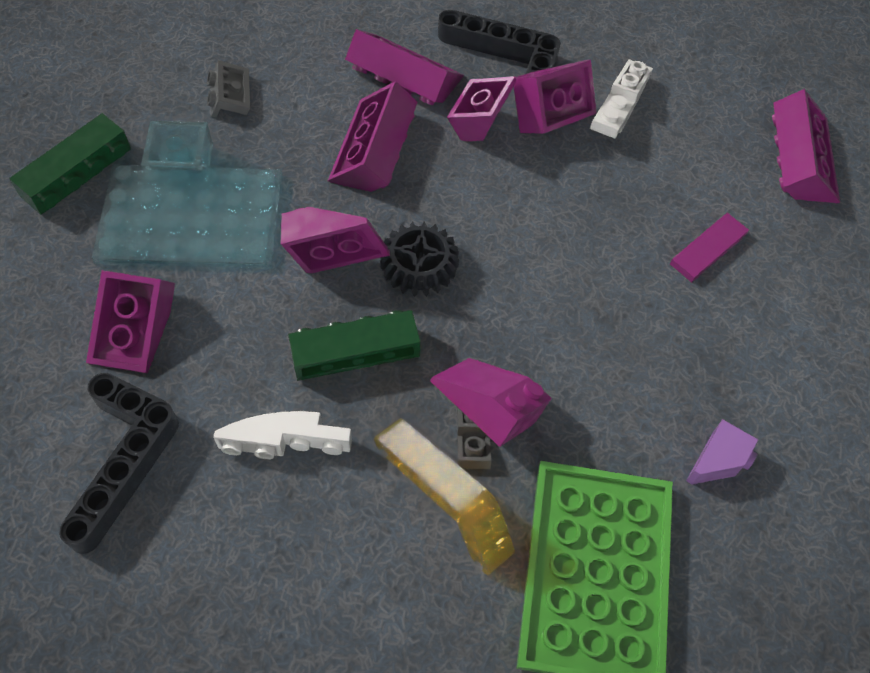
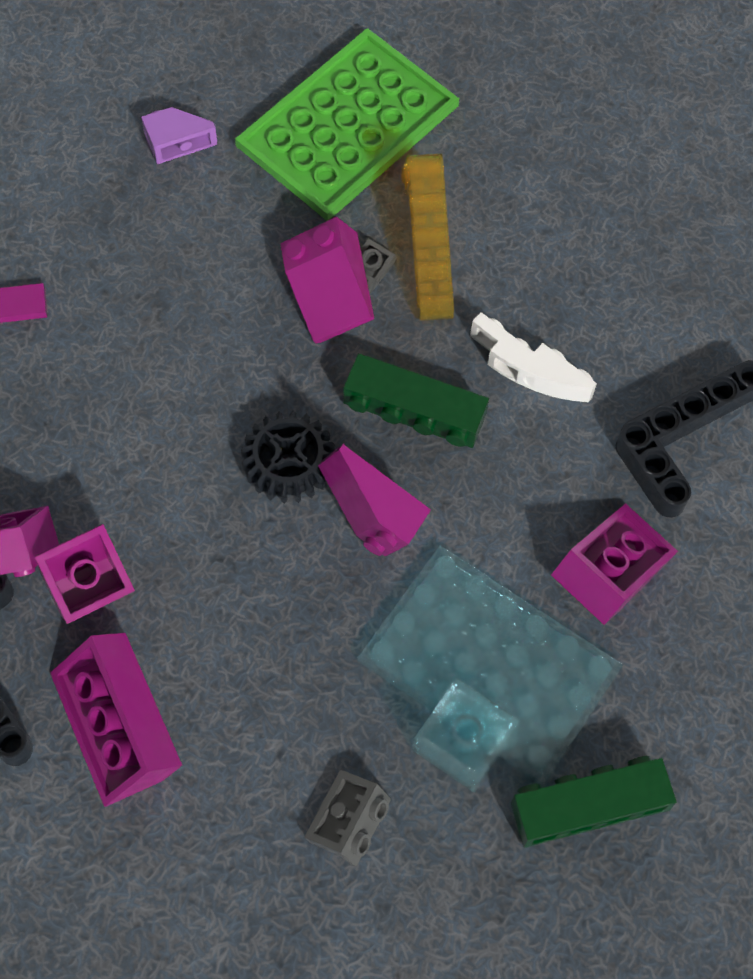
camera: 145 degrees left, 5 degrees up
(374, 139) = (230, 632): magenta slope -> none

